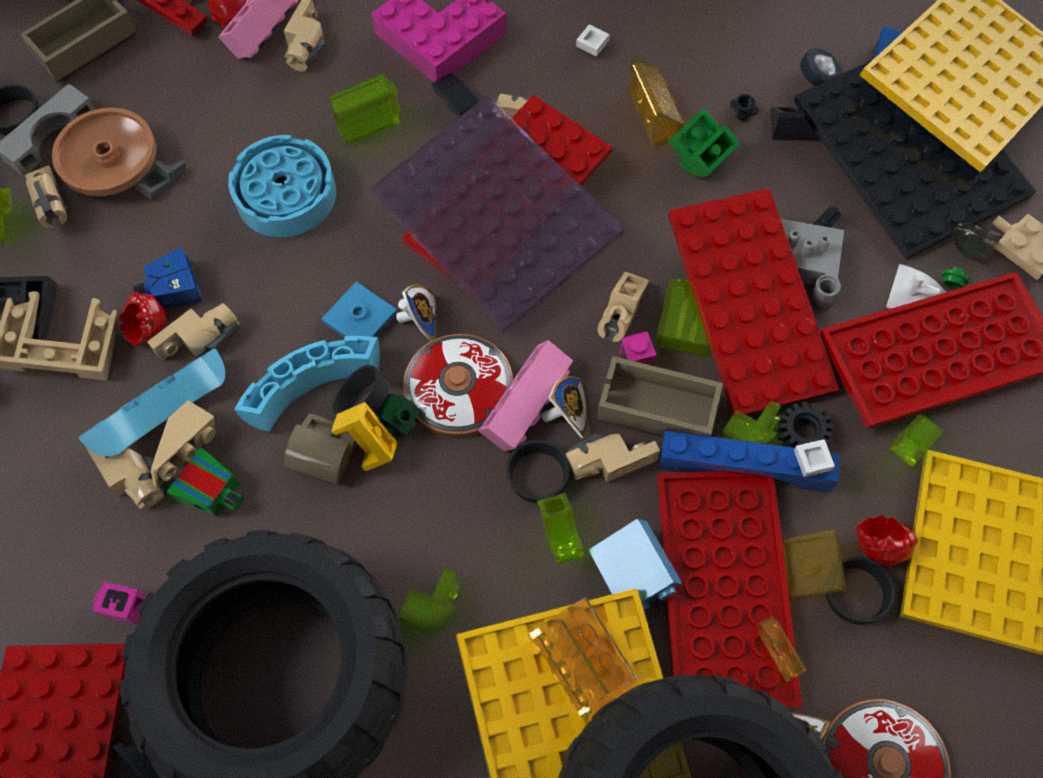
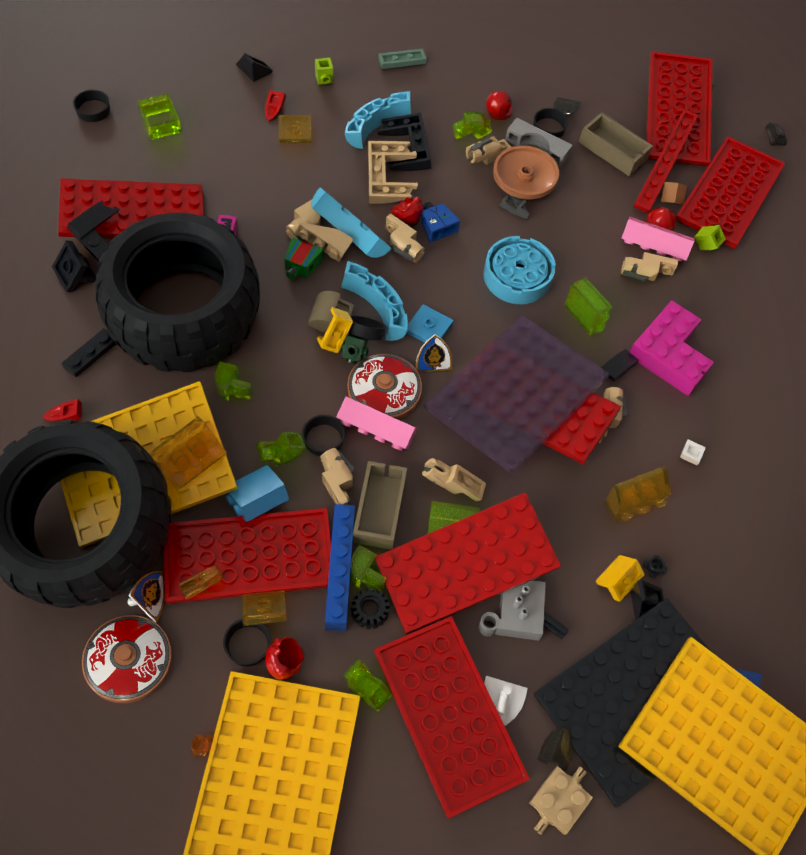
camera: 75 degrees right, 5 degrees down
(570, 402) = (374, 448): shield -> none
(638, 349) = (417, 491): dark pink brick -> none
(703, 144) = (608, 531): green brick -> none
(758, 144) = (621, 576): none -> yellow panel
(814, 458) = (336, 597): white plate -> none
(819, 66) = (707, 623): black wheel -> none
(955, 278) = (517, 728): green plate -> none
(1006, 664) = (201, 745): none -> clear orange plate

